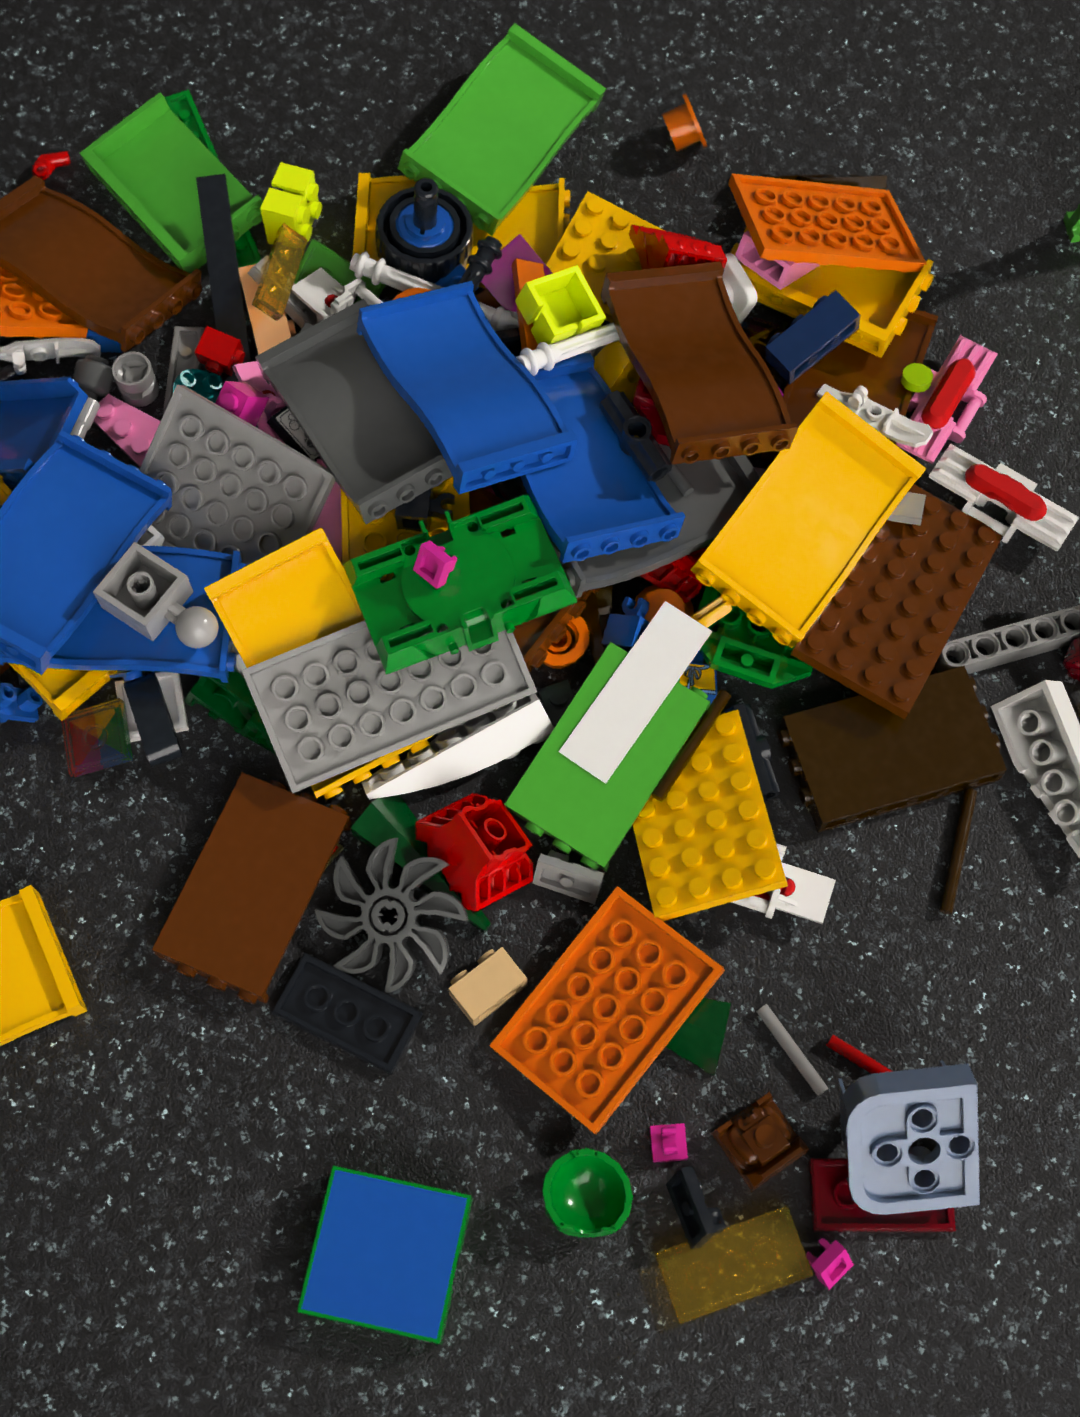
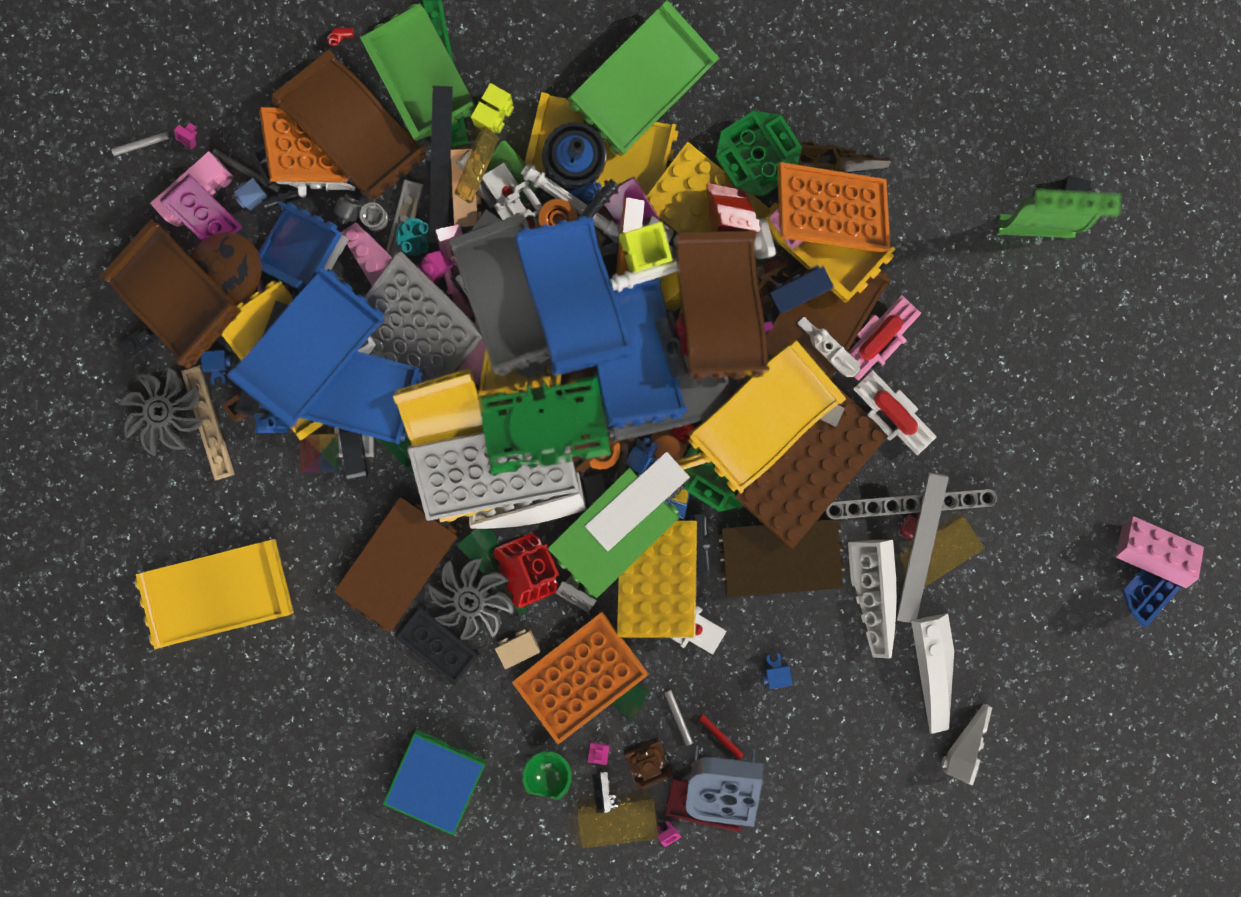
camera: 20 degrees right, 20 degrees up
(150, 595) = (357, 404): light grey brick -> none
(219, 351) = (429, 213): red brick -> none
(434, 564) = (530, 417): dark pink tile -> none
(683, 125) = (765, 97): orange piece -> none
(688, 187) = (760, 133): none -> green piece
(691, 745) = (666, 535): dark brown bar -> none
(916, 377) = (864, 322): lime tile -> none
(939, 936) = (777, 674): none -> blue brick
(958, 851) = (803, 624): dark brown bar -> none

